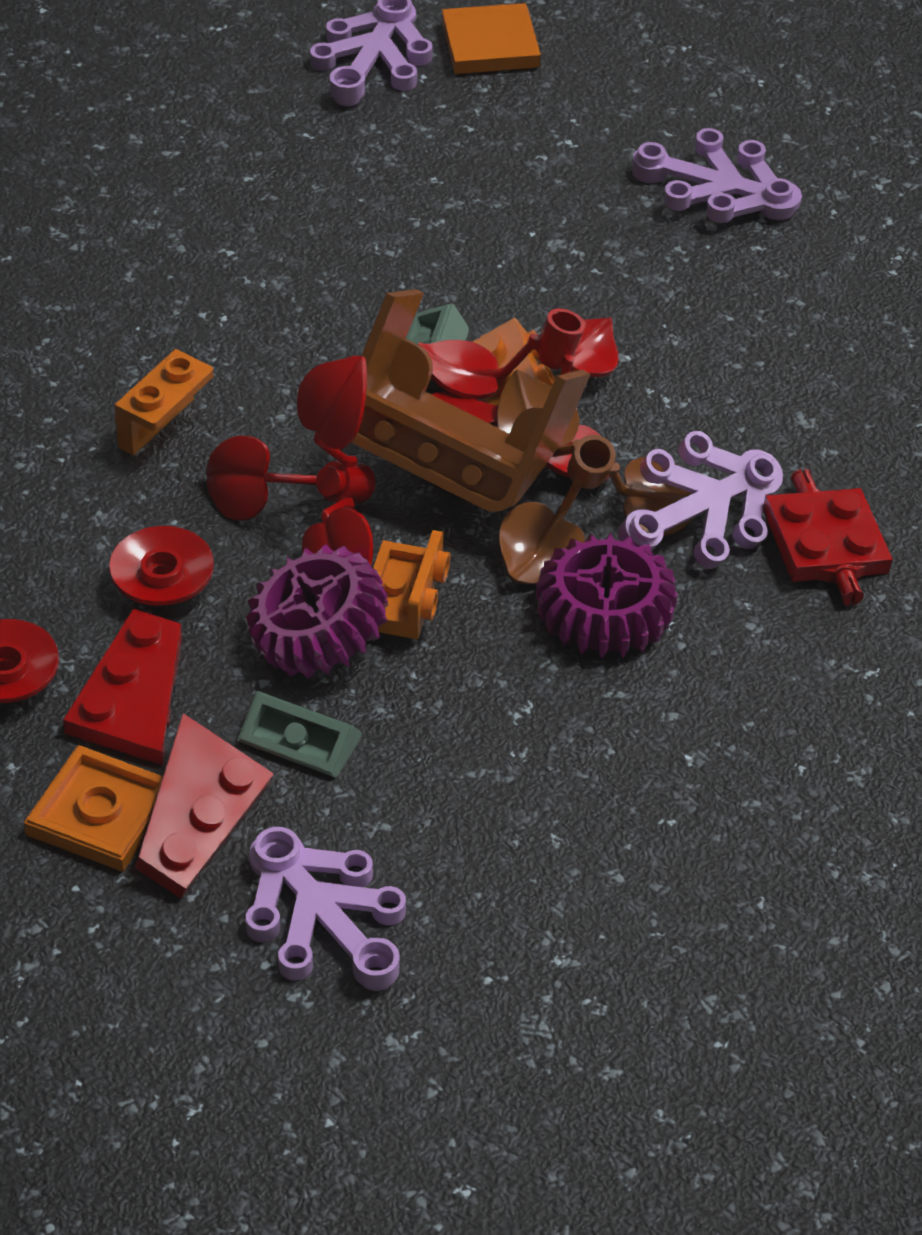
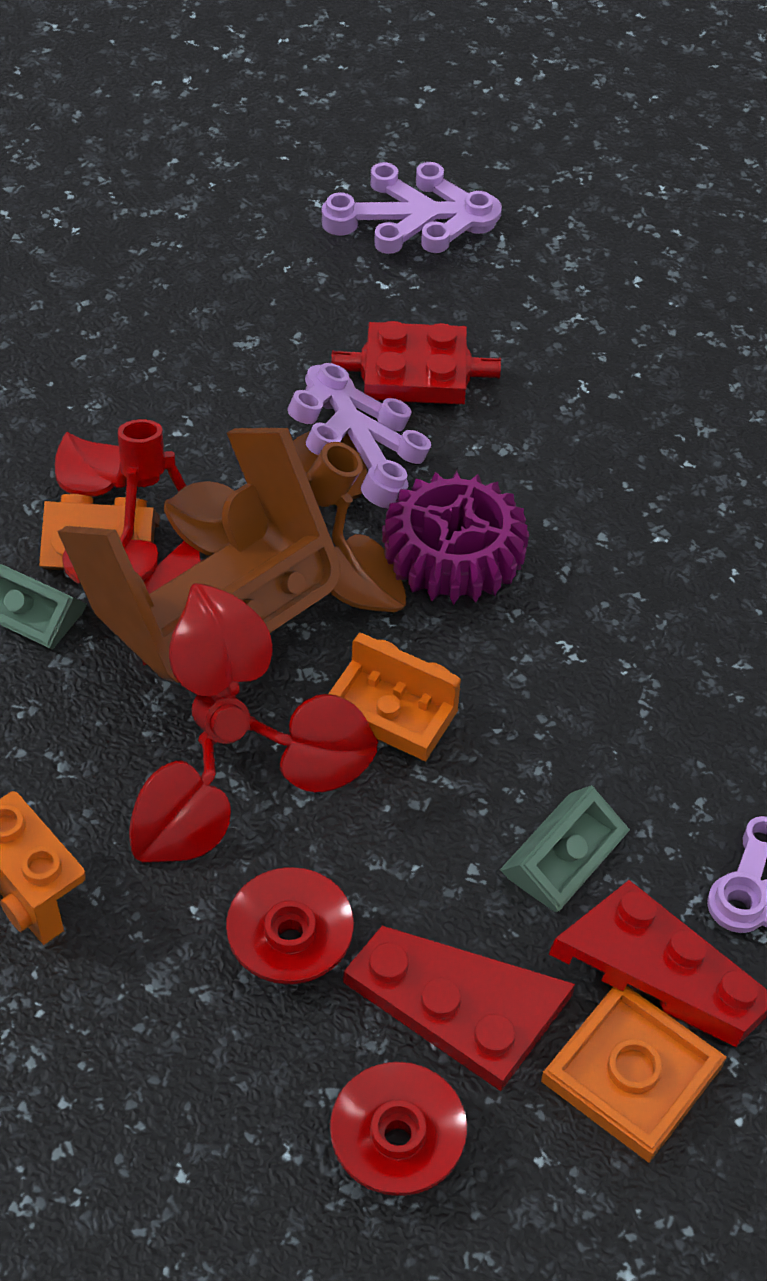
camera: 75 degrees left, 5 degrees up
(348, 604) = (452, 772): magenta gear -> none

